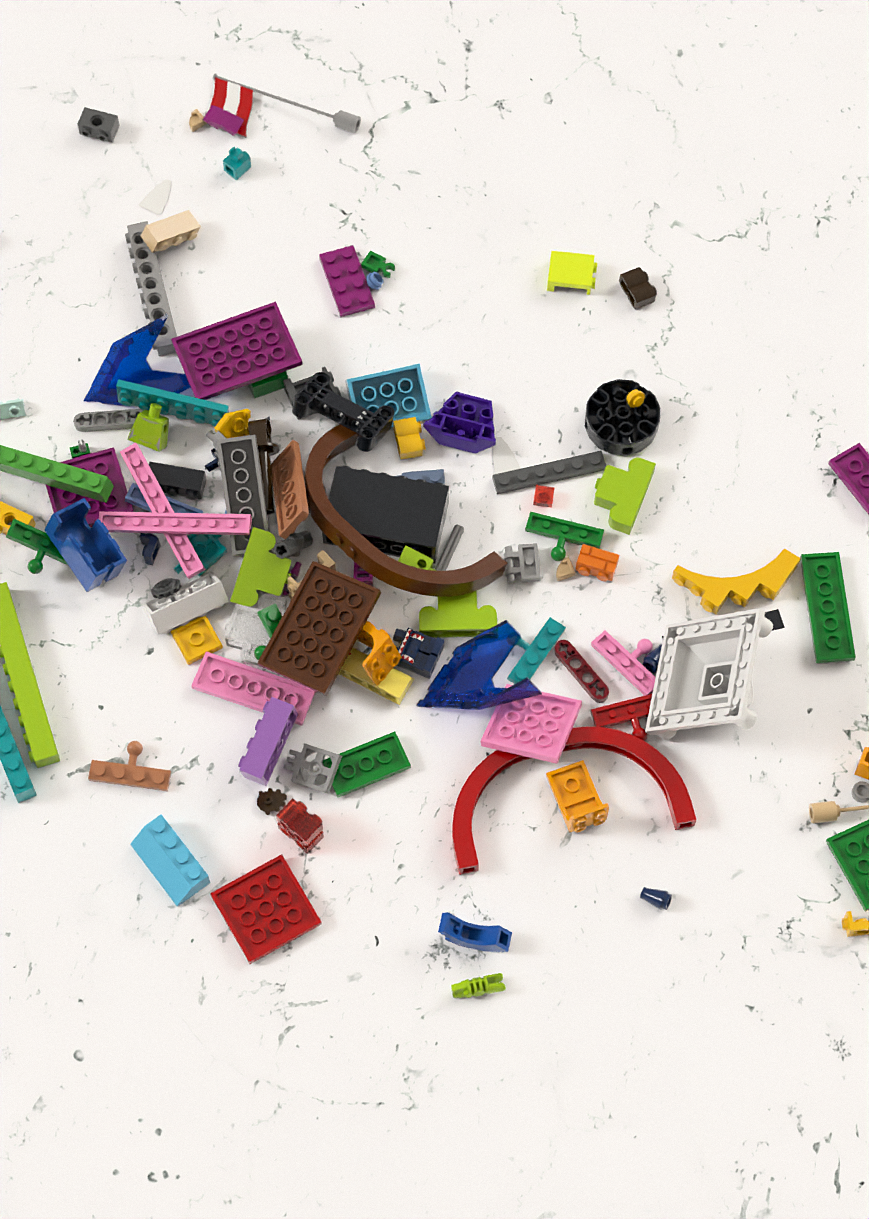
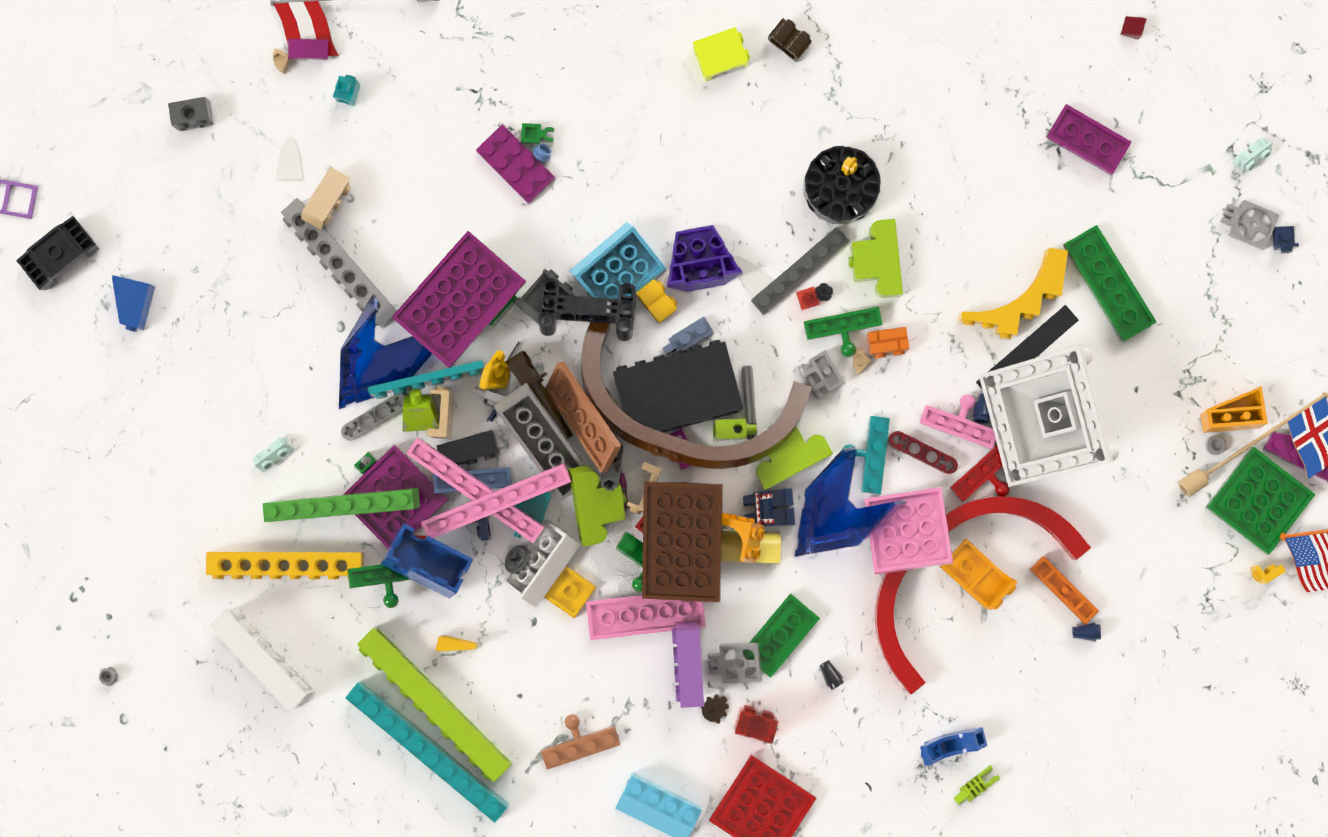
camera: 20 degrees left, 20 degrees up
(66, 631) = (449, 643): none -> yellow slope
(171, 442) = (446, 414): none -> tan panel
(394, 822) = (831, 675): none -> black cone
(561, 502) = (824, 287): none -> black plate
(653, 850) = (1064, 590): none -> orange plate

